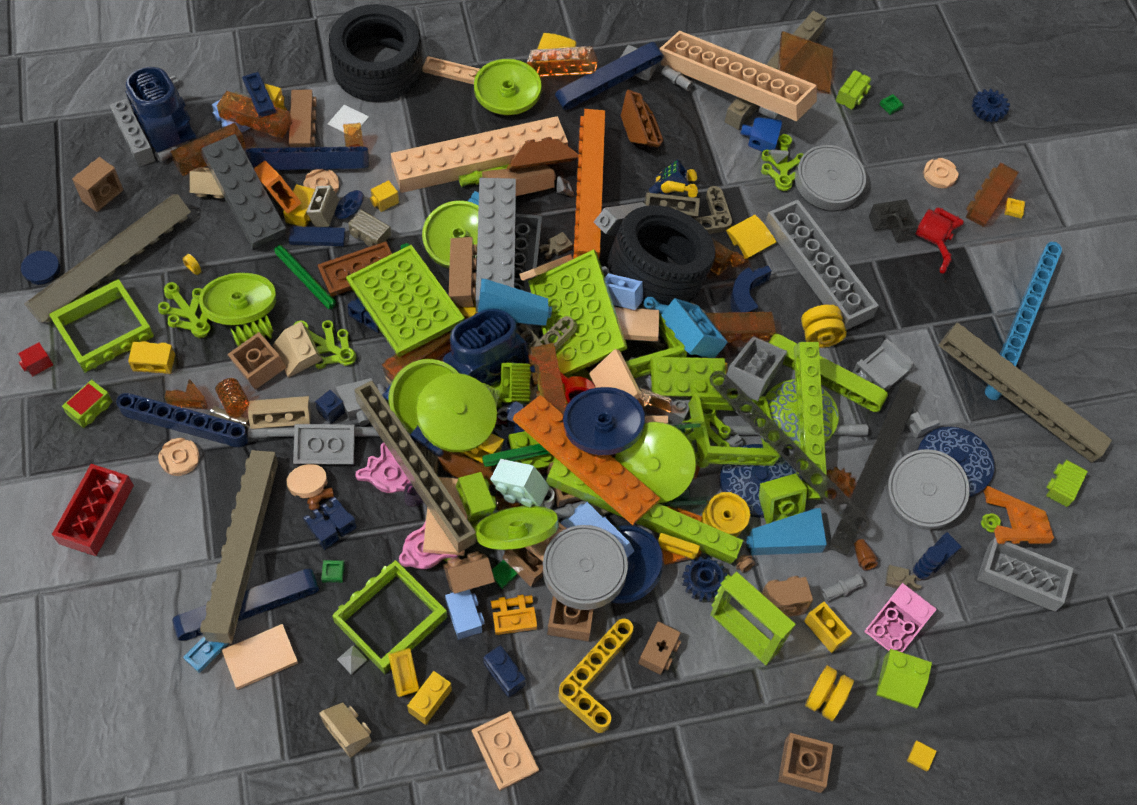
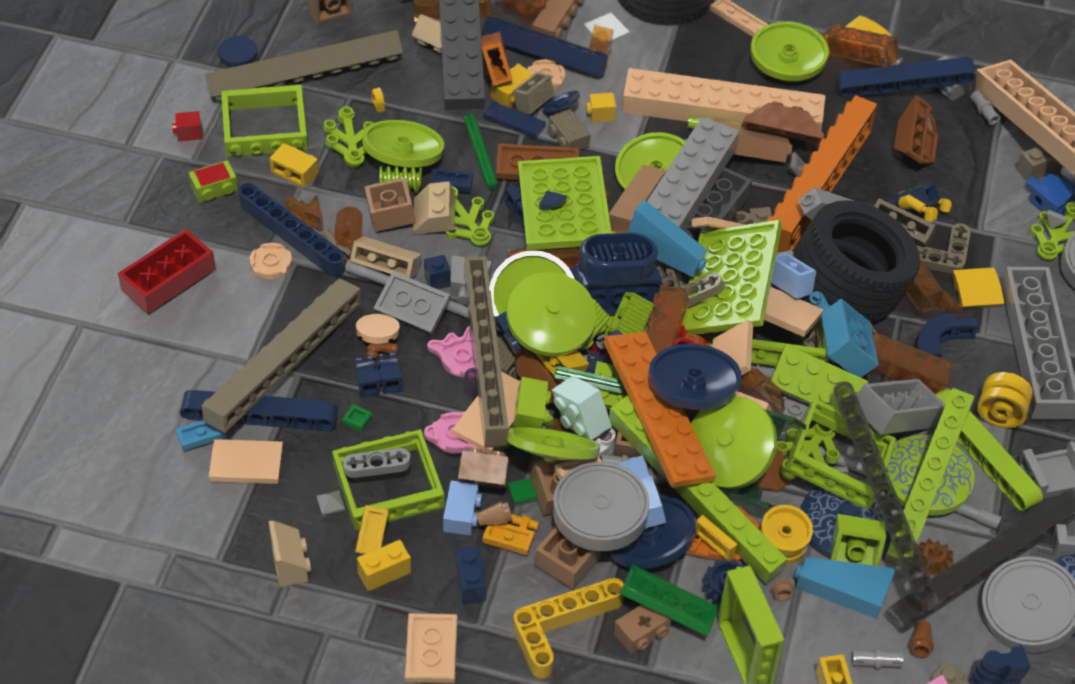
camera: 30 degrees right, 10 degrees down
(301, 312) = (460, 180): none -> dark blue plate
(376, 617) = (382, 455): none -> light grey beam
(396, 303) = (552, 199): none -> dark blue tile
(497, 609) = (495, 514): none -> medium nougat cone
(671, 618) = (669, 600): none -> green tile
(789, 596) = (805, 635): medium nougat brick -> none

